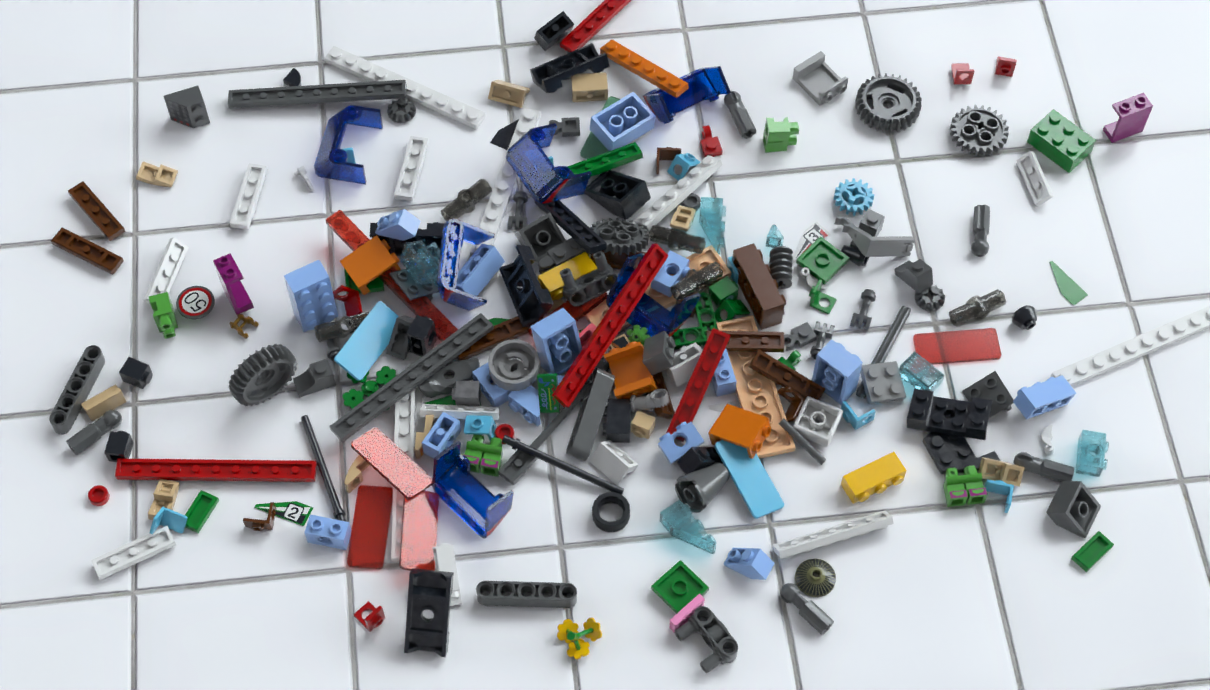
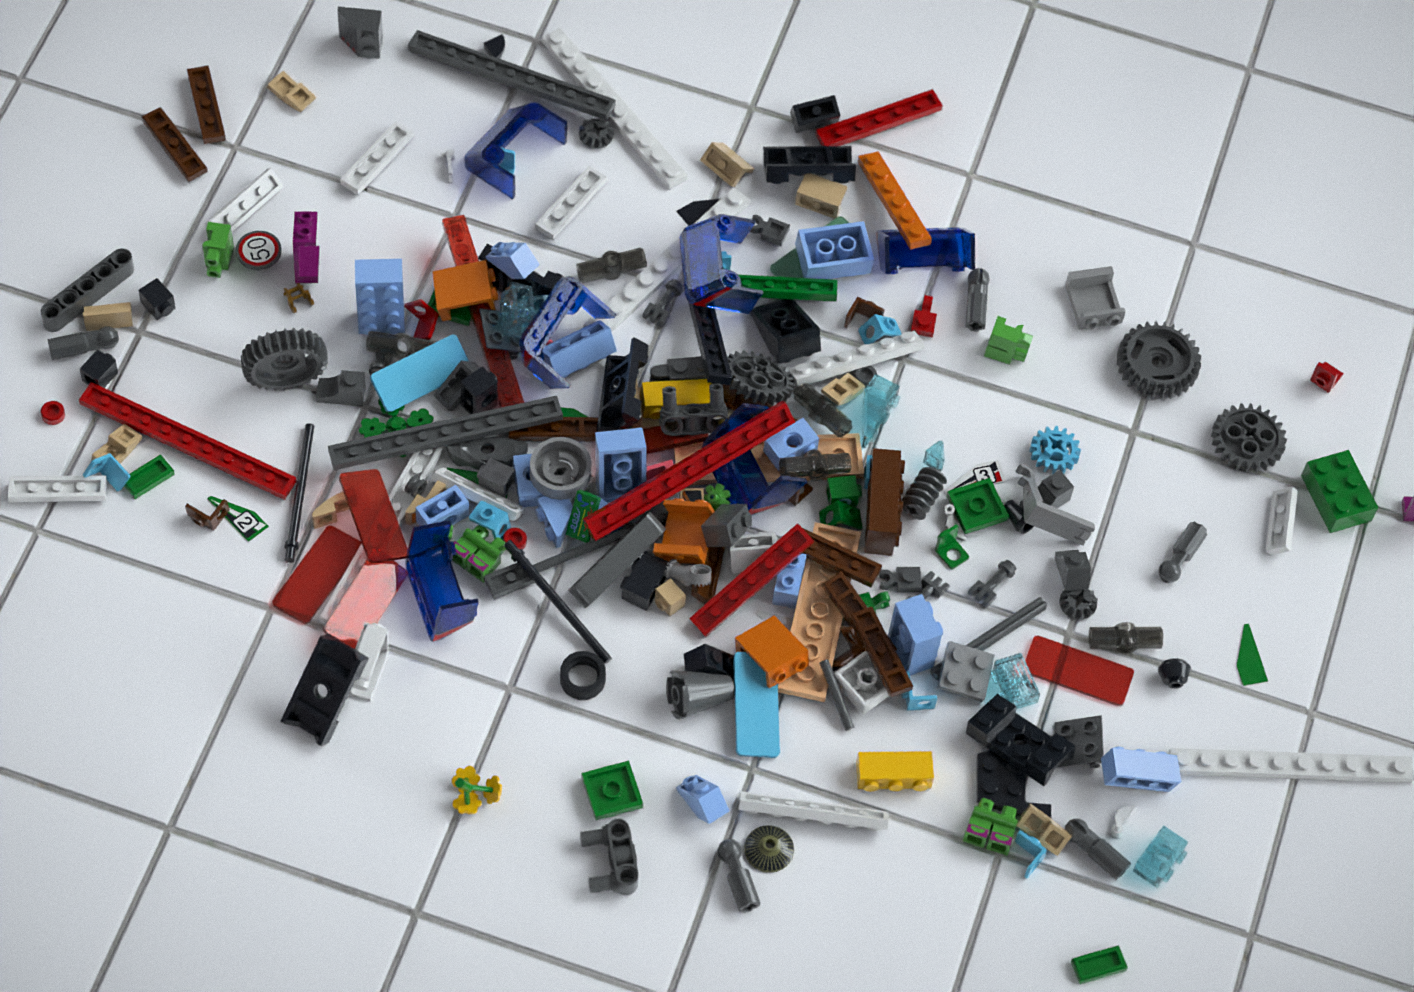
camera: 20 degrees right, 0 degrees up
(328, 532) = (268, 559): light blue brick -> none
(373, 619) = (266, 671): red bracket -> none
(412, 426) = (415, 486): none -> dark grey bush
(536, 599) = (448, 730): dark grey beam -> none
(540, 236) = (670, 340): dark grey slope -> none
(612, 461) = (615, 622): white panel -> none
(674, 452) = (684, 629): light blue brick -> none
(683, 526) = (652, 725): clear light blue slope -> none
(684, 614) = (599, 819): bright pink tile -> none
(700, 331) = (799, 518): green beam -> none
(819, 395) = (881, 652): none -> reddish brown plate
(962, 73) = (1267, 363): bracket -> none
(1073, 508) = (1104, 907): dark grey slope -> none

